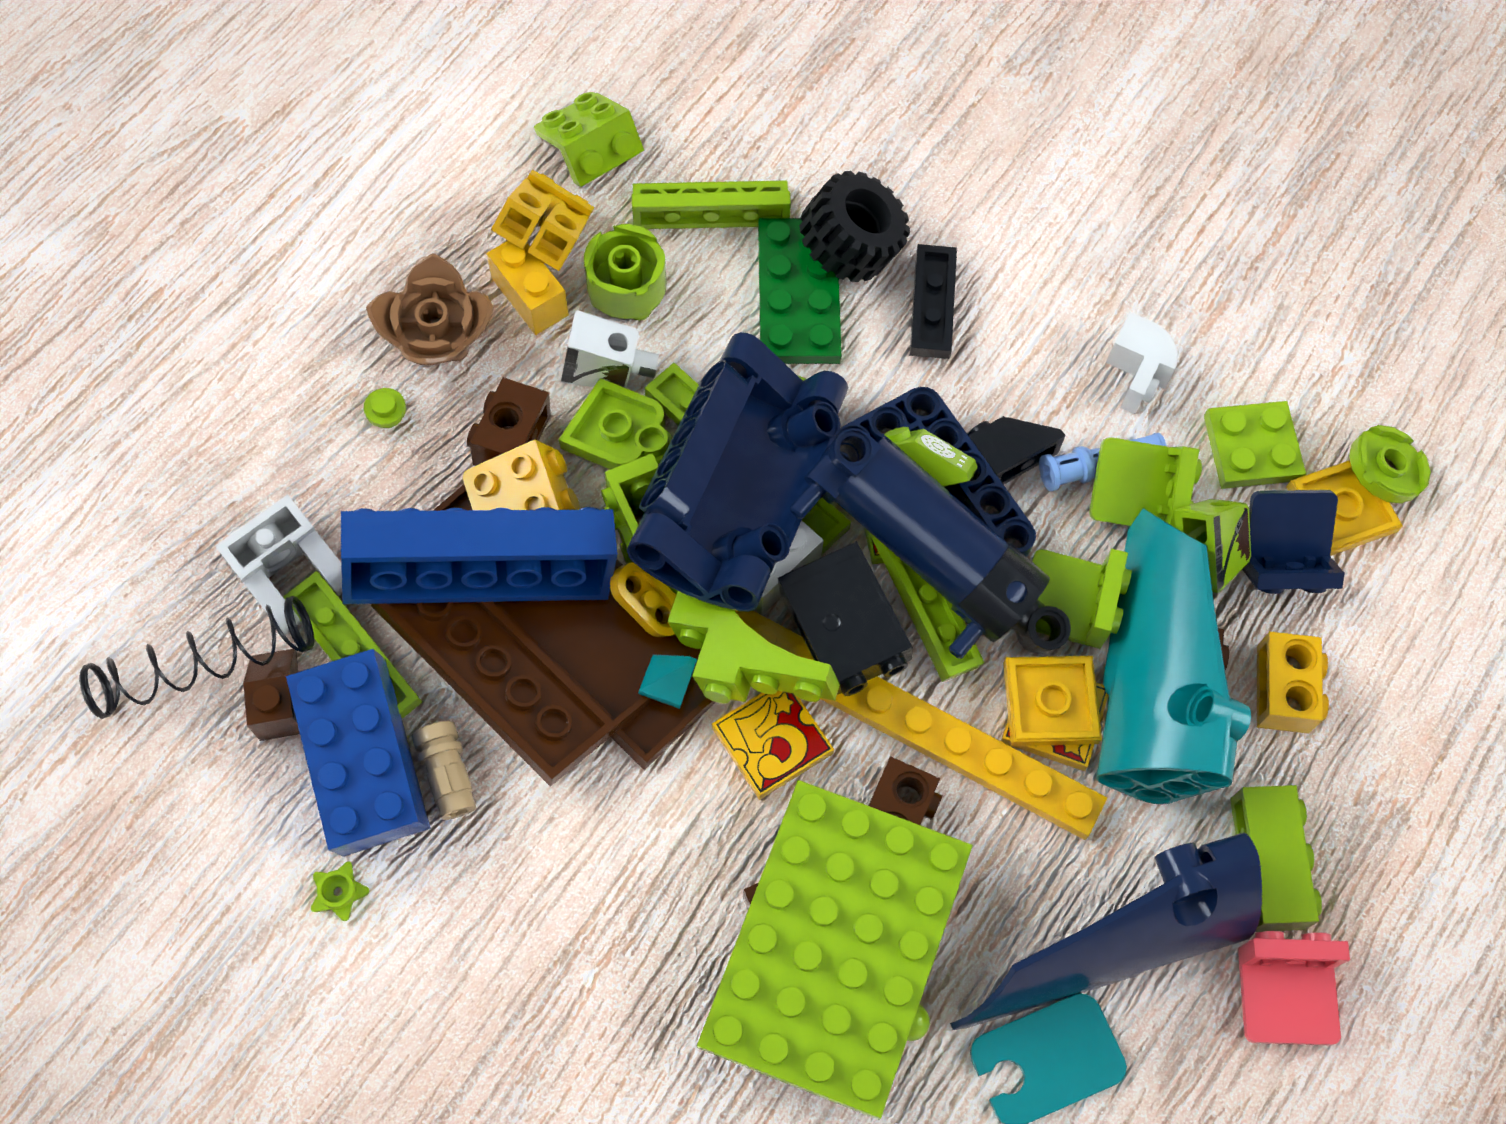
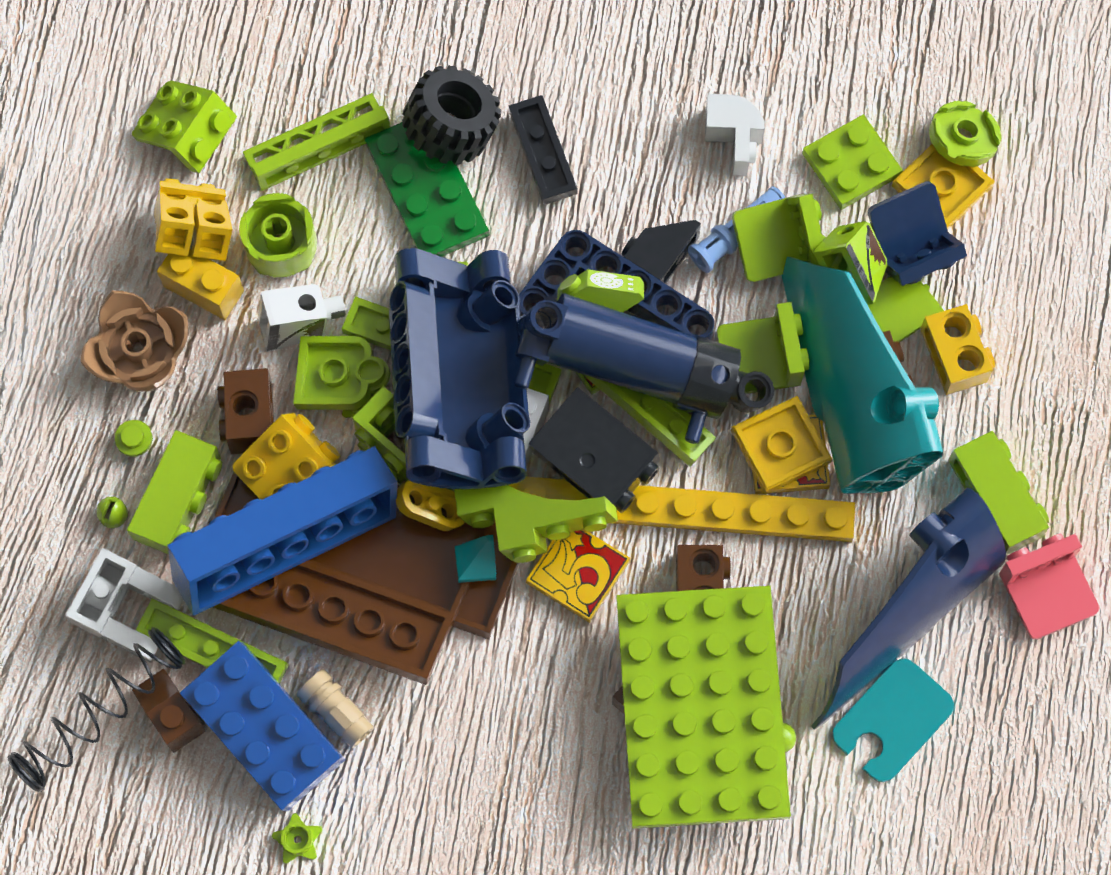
camera: 20 degrees left, 5 degrees up
(330, 474) = (118, 513): none -> lime hinge
(399, 471) = (175, 491): none -> lime brick
(1248, 614) = (903, 307): none -> lime piece

